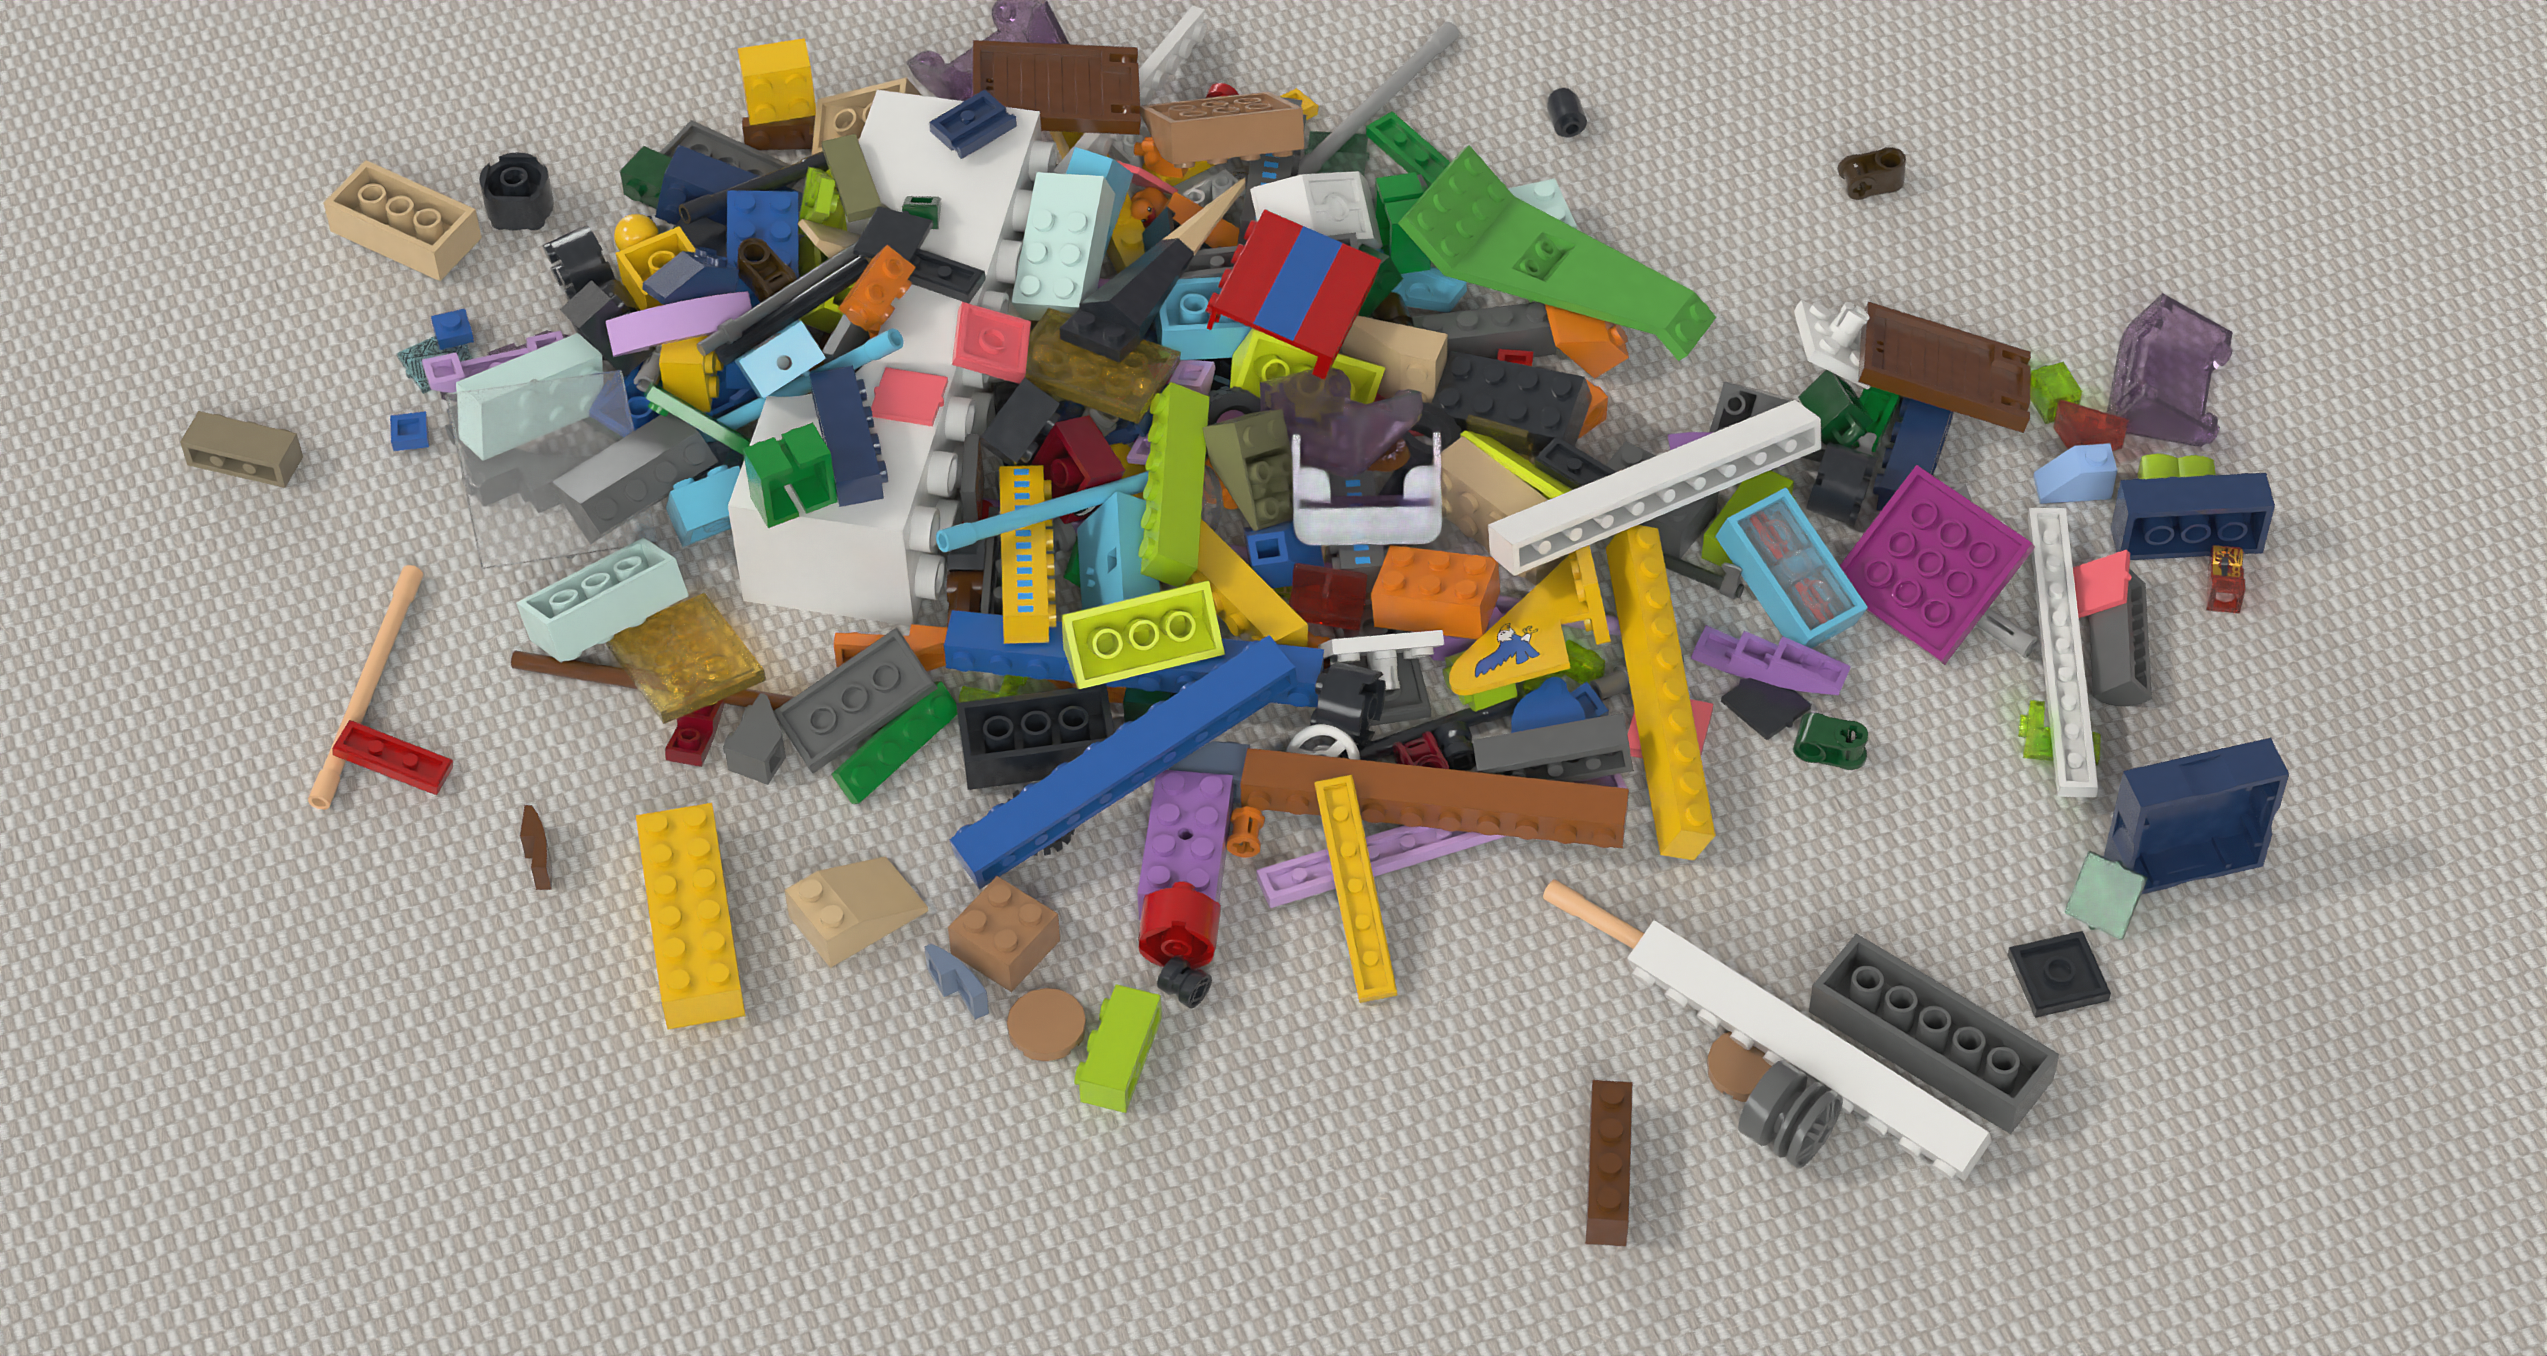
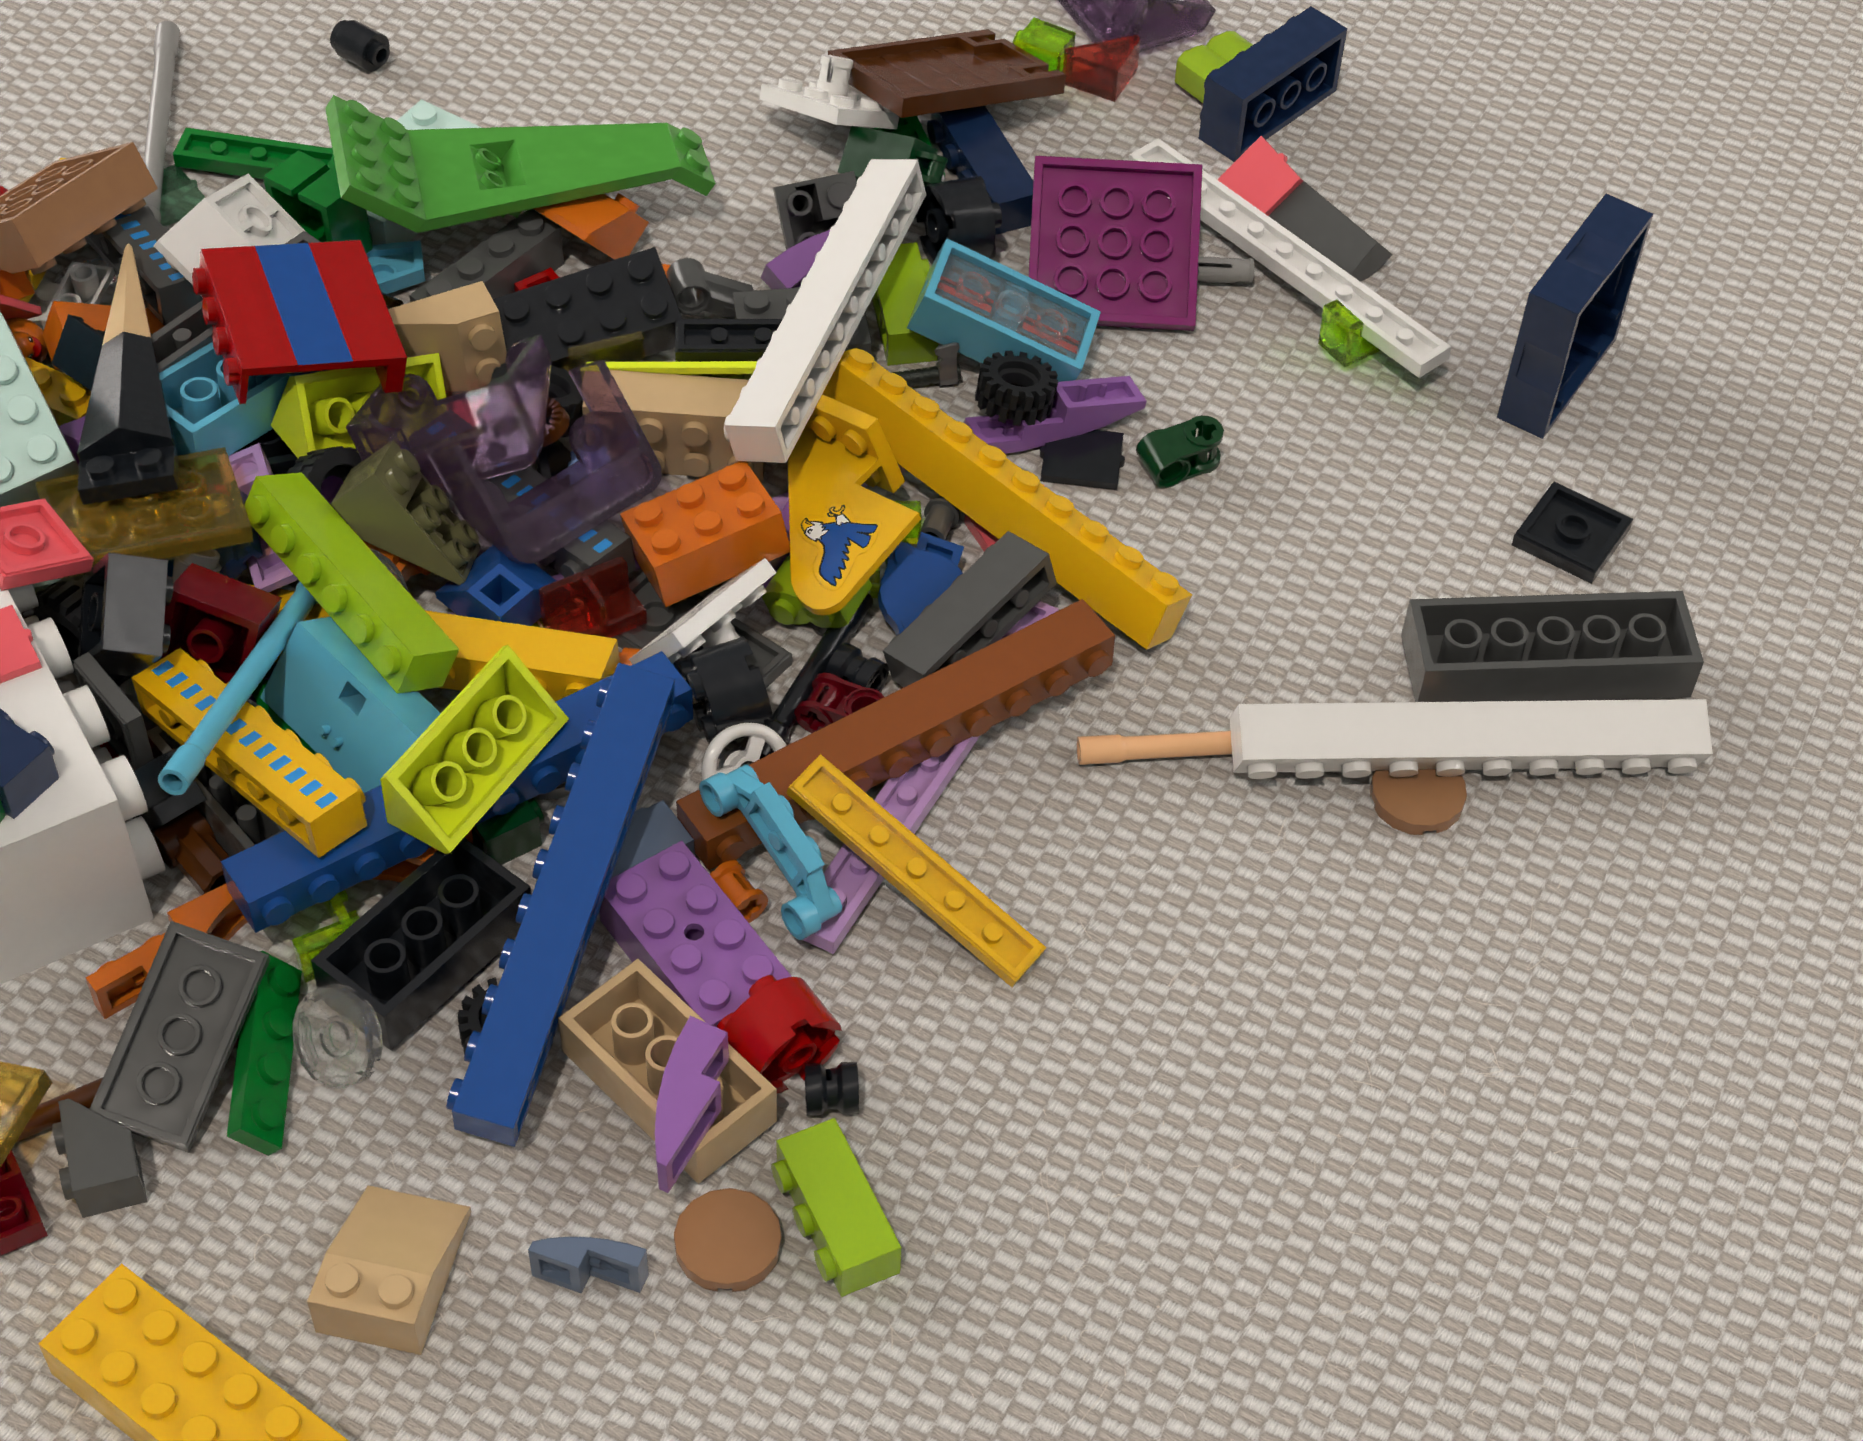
camera: 45 degrees left, 0 degrees up
(937, 758) = (337, 1036): none -> clear tile
(1004, 933) = (593, 1174): medium nougat brick -> none
(1073, 920) = (688, 1097): none -> medium lavender slope
(1098, 904) = (623, 1044): none -> tan brick
(1281, 764) = (785, 841): none -> medium azure plate
(1606, 424) = (702, 291): none -> dark grey piece
(1609, 1163) = (1415, 970): reddish brown brick -> none
(1754, 610) = (1016, 388): none -> black tyre
(1788, 1112) = (1526, 804): dark grey wheel -> none
(2077, 475) = (1137, 106): light blue slope -> none
(2105, 895) = (1549, 435): clear green piece -> none
(2225, 576) = (1340, 123): clear red leg -> none

